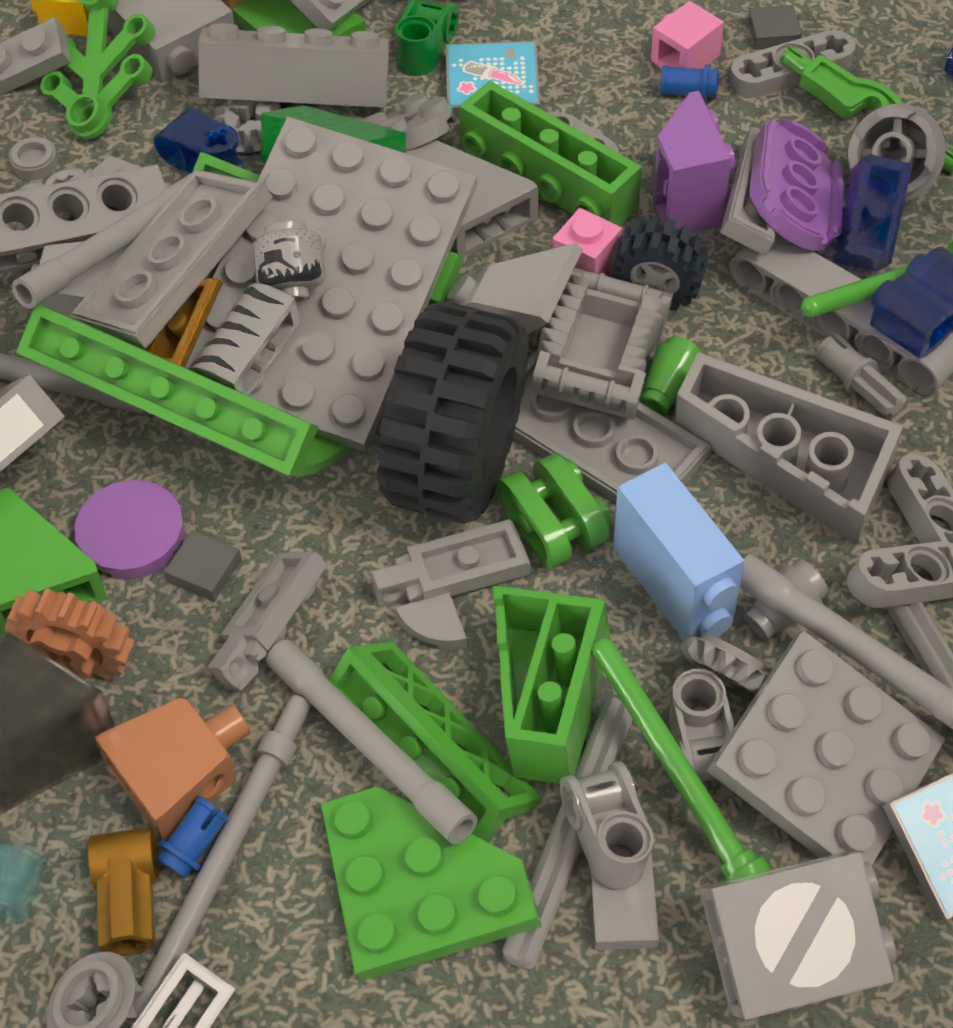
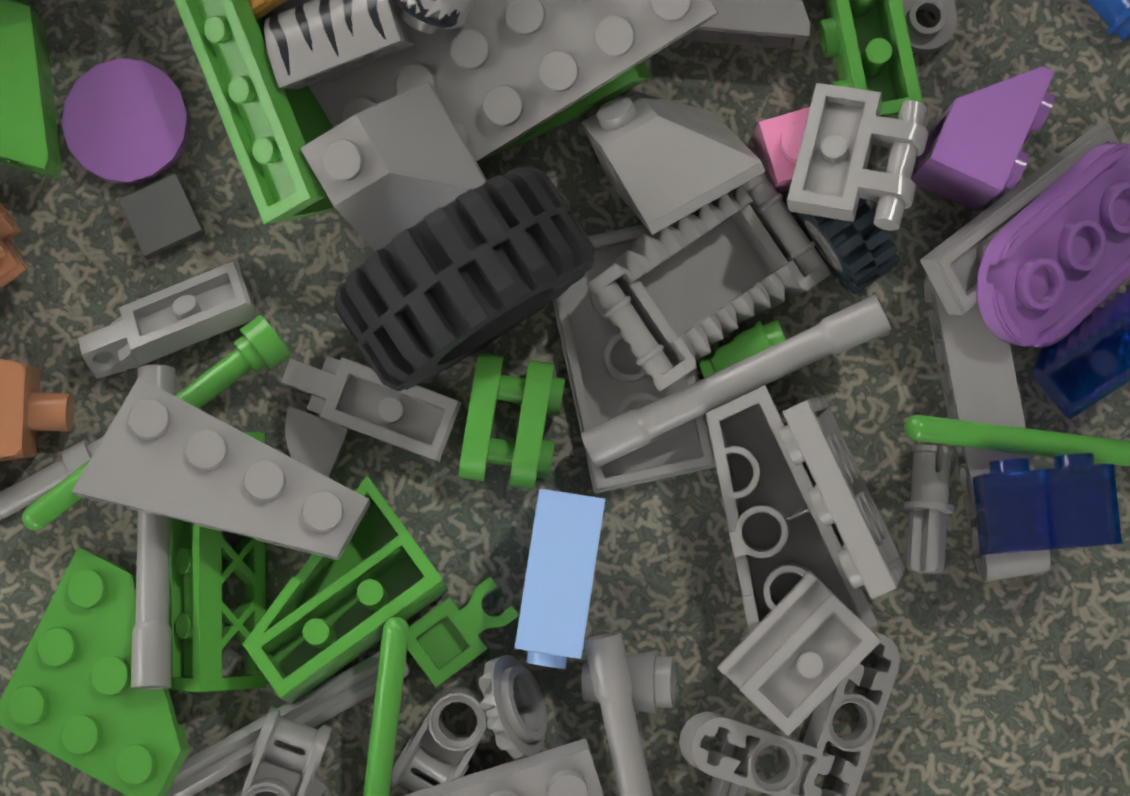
camera: 35 degrees right, 30 degrees up
(342, 392) = (393, 164): none -> light grey slope
(343, 578) = (254, 350): none -> bright green piece
(362, 656) = (200, 470): none -> light grey wing
(618, 205) = (836, 153): none -> light grey plate
(645, 653) = (450, 637): none -> bright green plate
(709, 307) = (831, 336): none -> light grey piece
(809, 356) = (843, 497): none -> light grey plate
(875, 468) = (799, 653): none -> light grey plate

